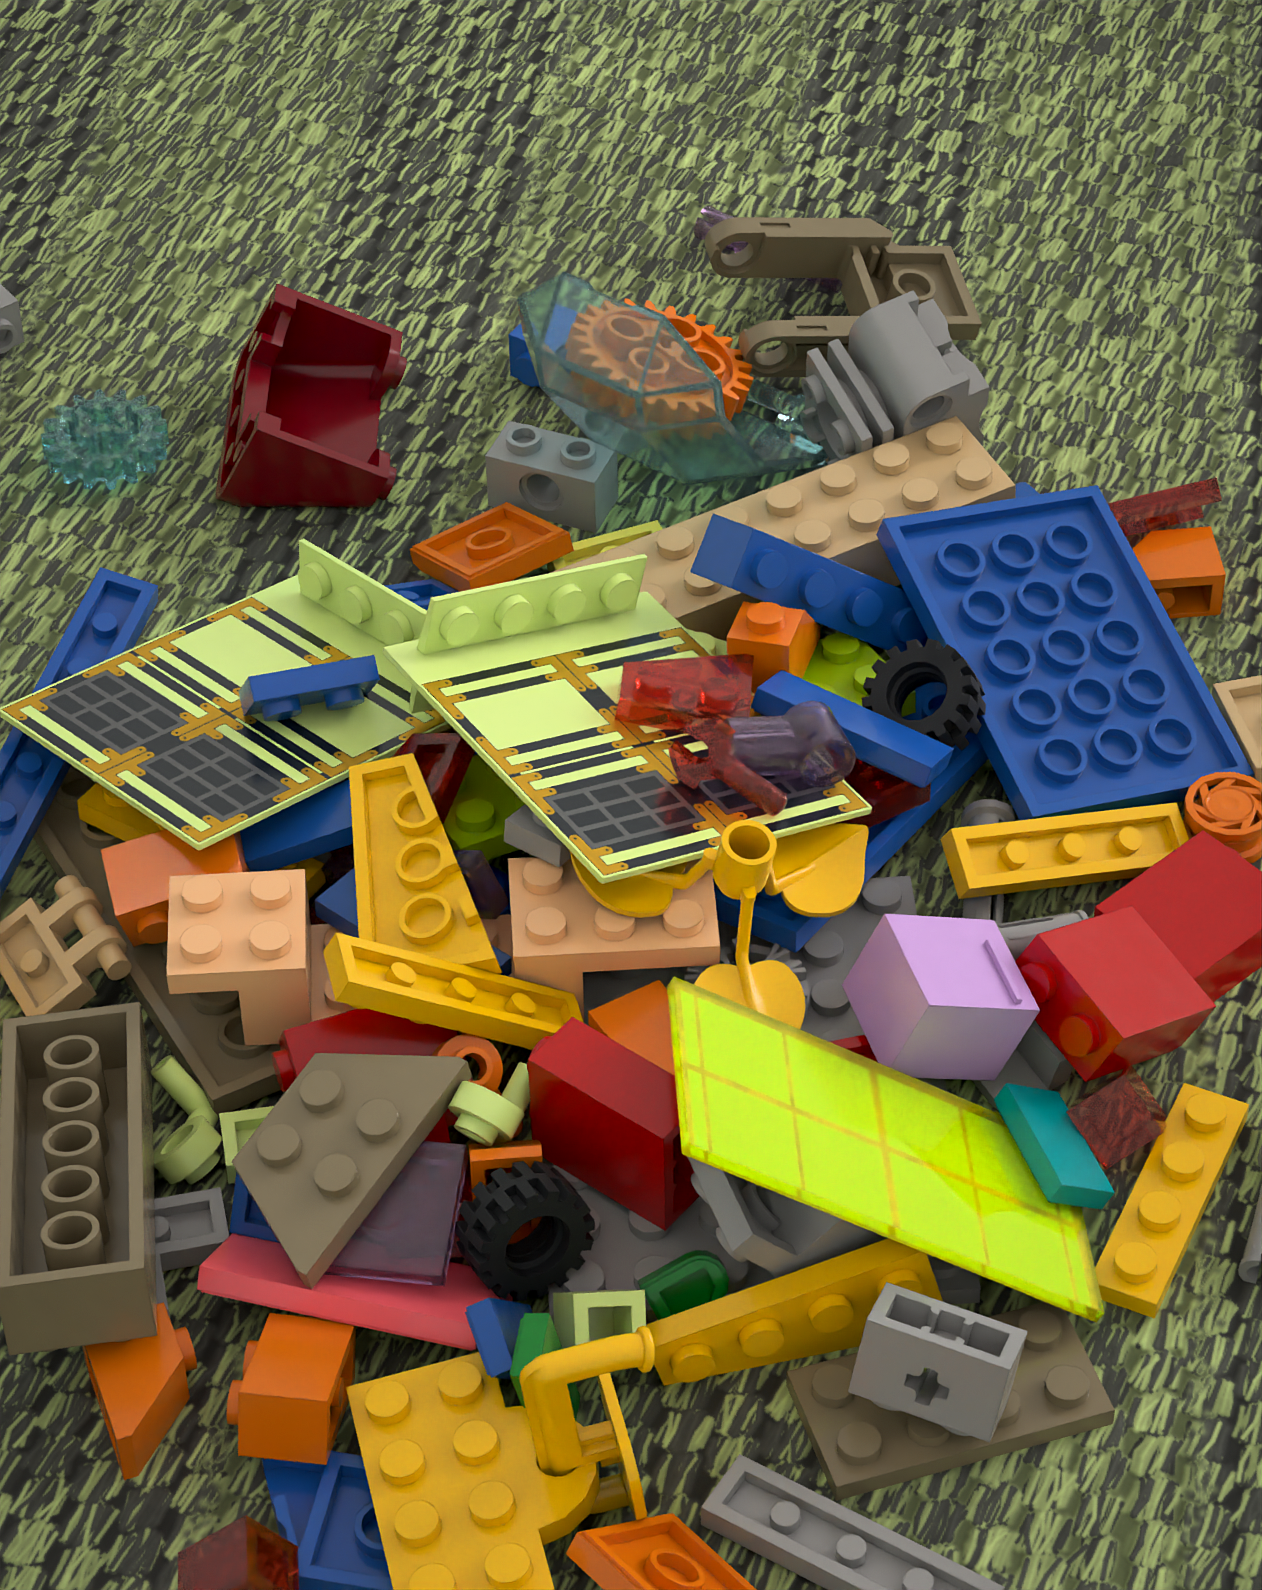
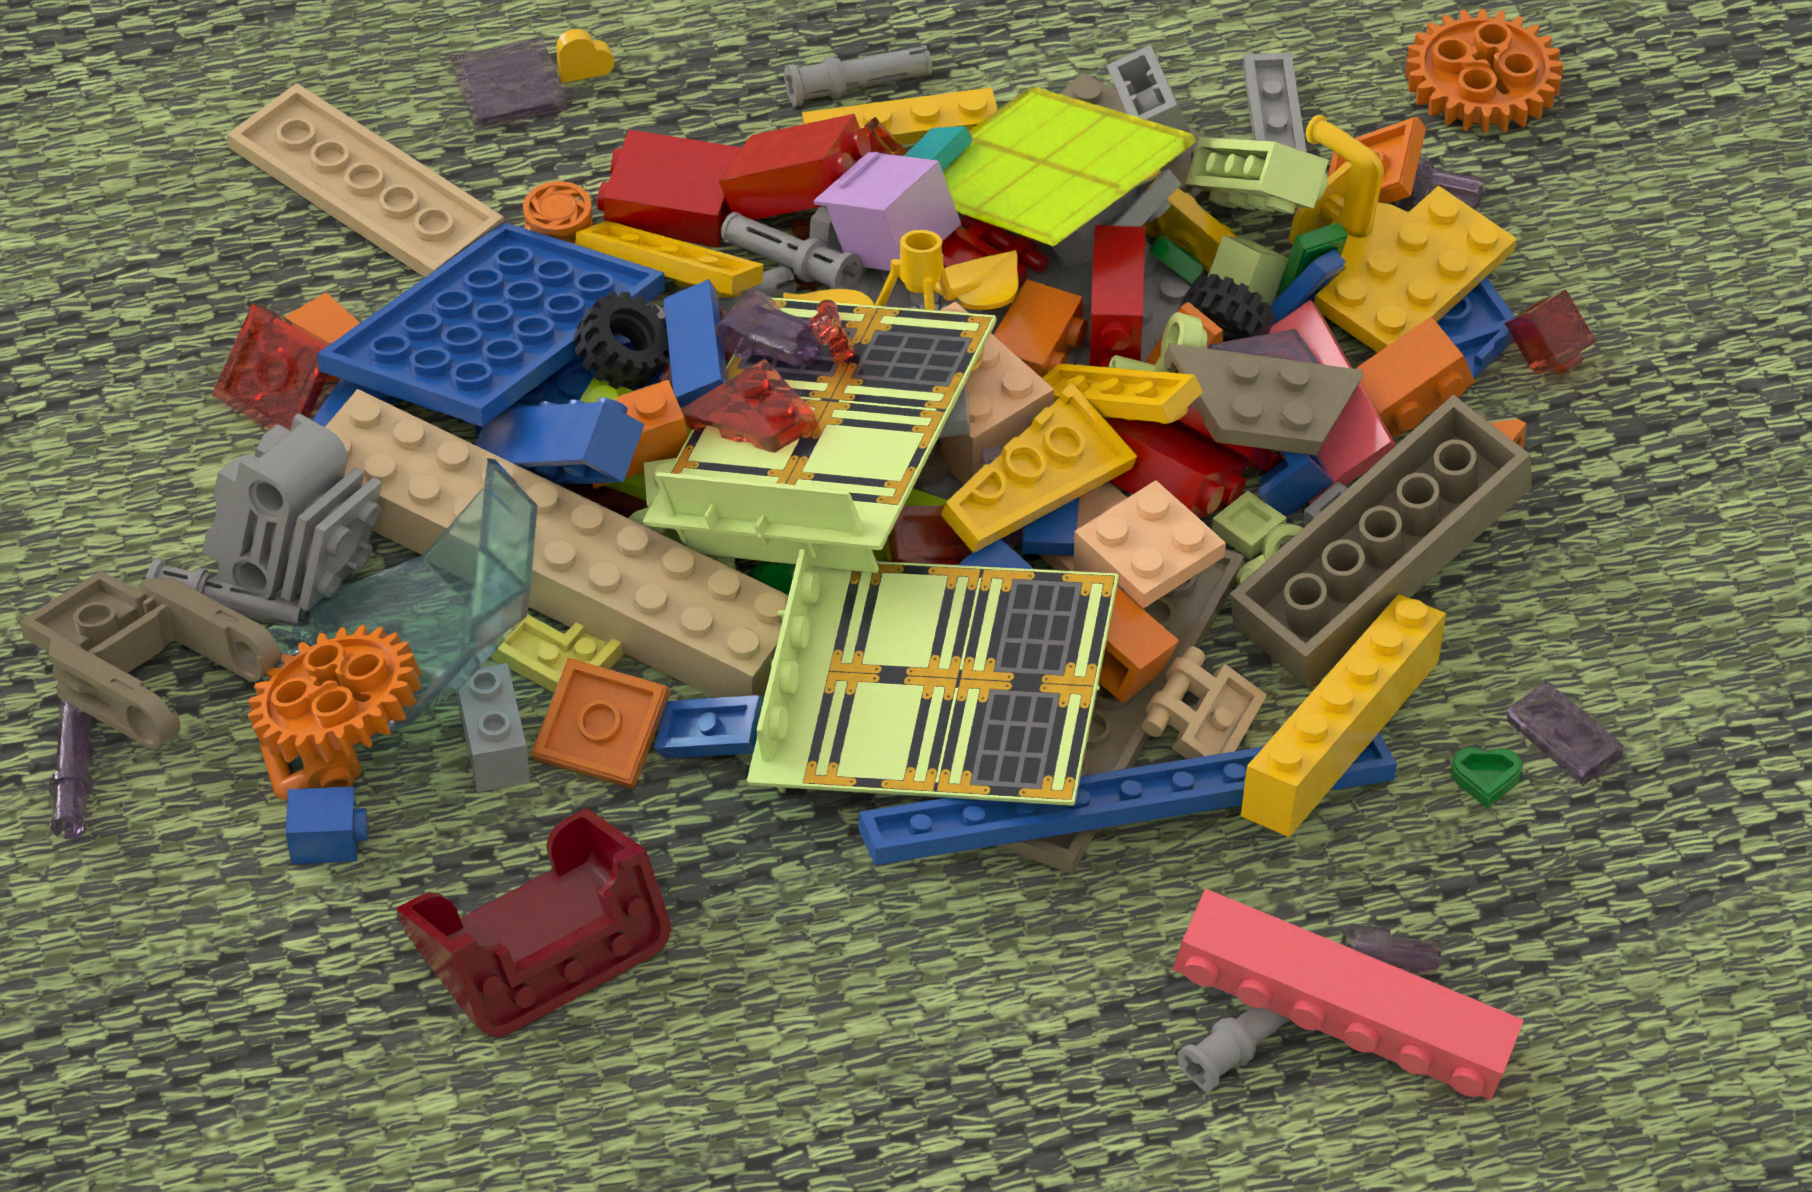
camera: 125 degrees left, 5 degrees up
(105, 439) = (690, 1056): clear light blue gear -> none
(284, 692) = (912, 622): blue plate -> none
(701, 1353) = (1257, 175): none -> yellowish green brick

